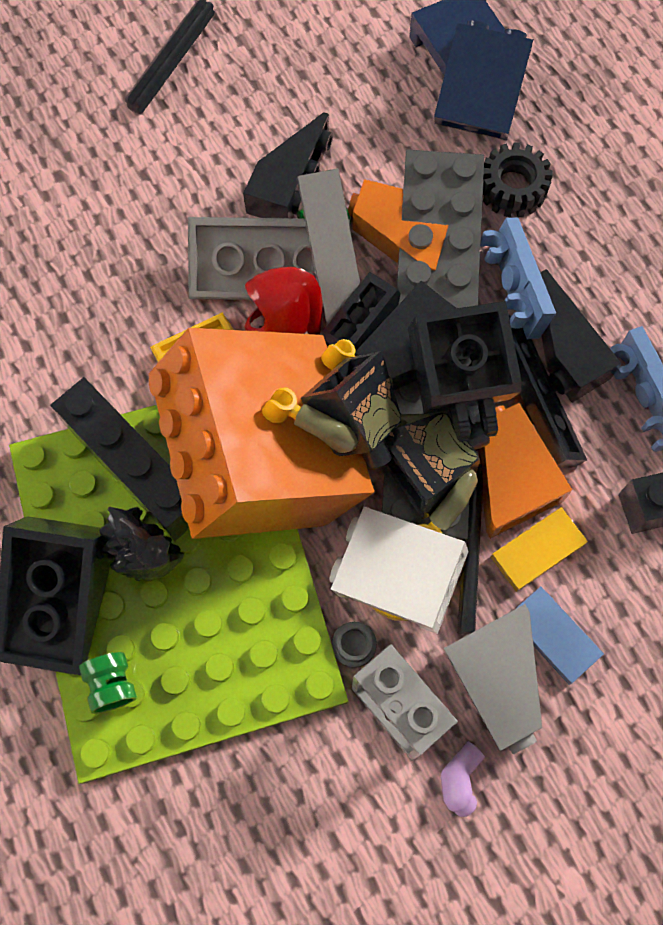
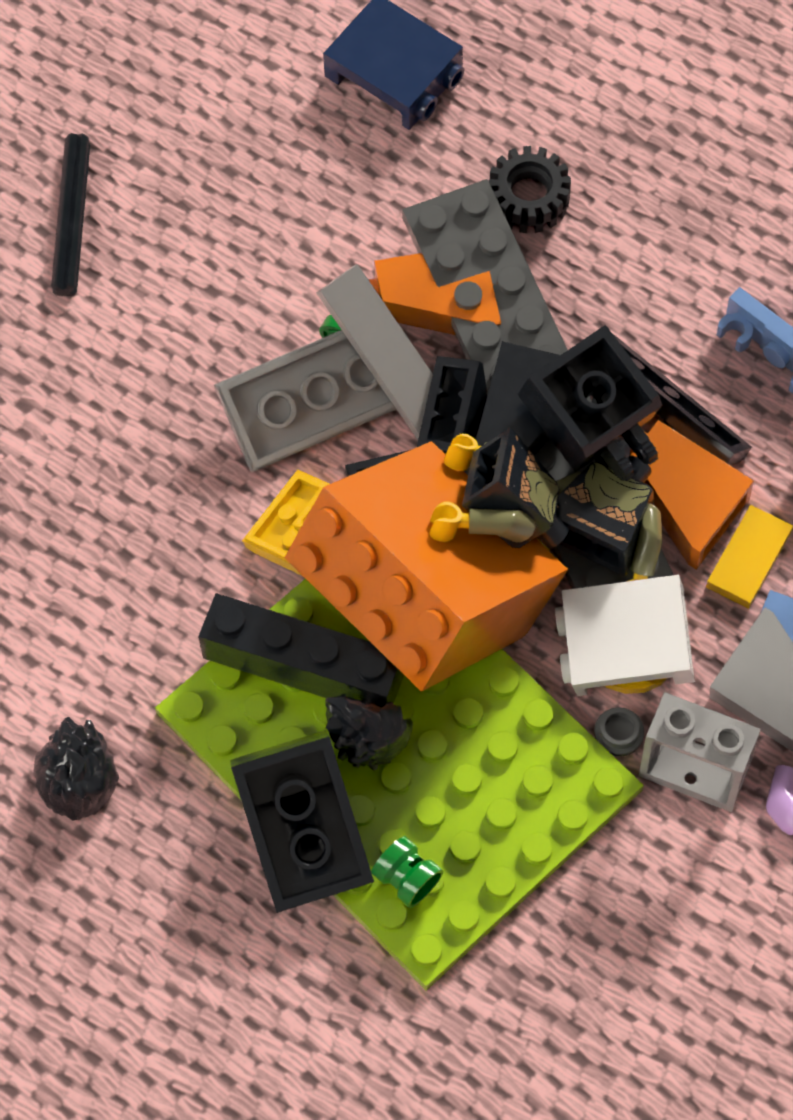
camera: 25 degrees left, 5 degrees down
(274, 184) = (280, 293): black slope -> none
(287, 300) = (370, 423): red piece -> none
(470, 569) = (695, 612): black bar -> none
(483, 79) = (443, 97): dark blue panel -> none
(520, 278) = (590, 291): medium blue plate -> none
(573, 349) = (680, 341): black slope -> none

